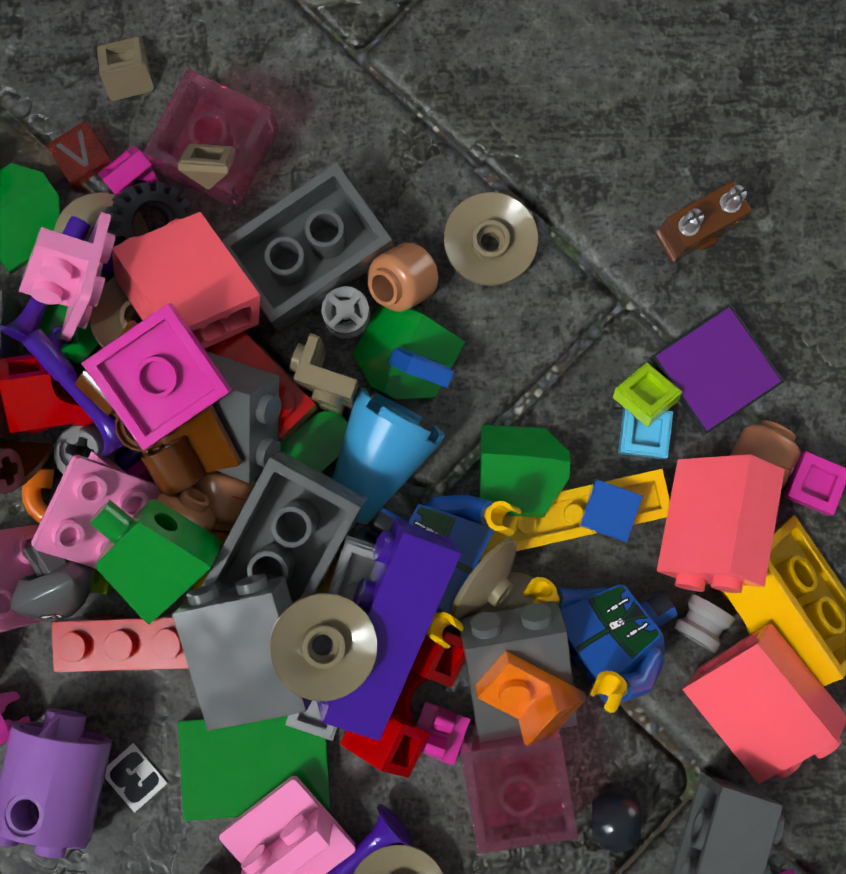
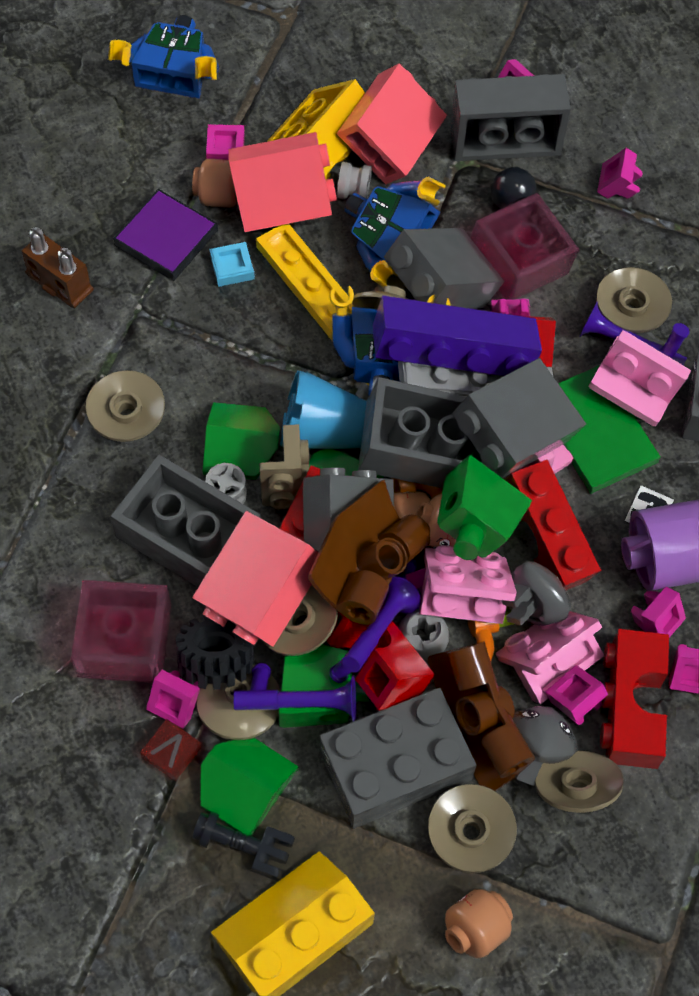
camera: 115 degrees left, 20 degrees down
(69, 272) = (288, 650): bright pink bracket -> none
(125, 68) = (77, 745): dark tan slope -> none
(156, 376) = (345, 534): dark pink plate -> none
(206, 163) = (148, 600): dark tan slope -> none
(329, 673) = (489, 352): dark tan dish -> none
(402, 277) = (184, 447): nougat head -> none
(421, 366) = (249, 406): blue tile -> none
(522, 468) = (295, 325): green slope -> none
(530, 695) = (458, 240): orange slope -> none
(610, 510) = (302, 255): blue tile -> none
(647, 394) = (204, 267): lime tile -> none

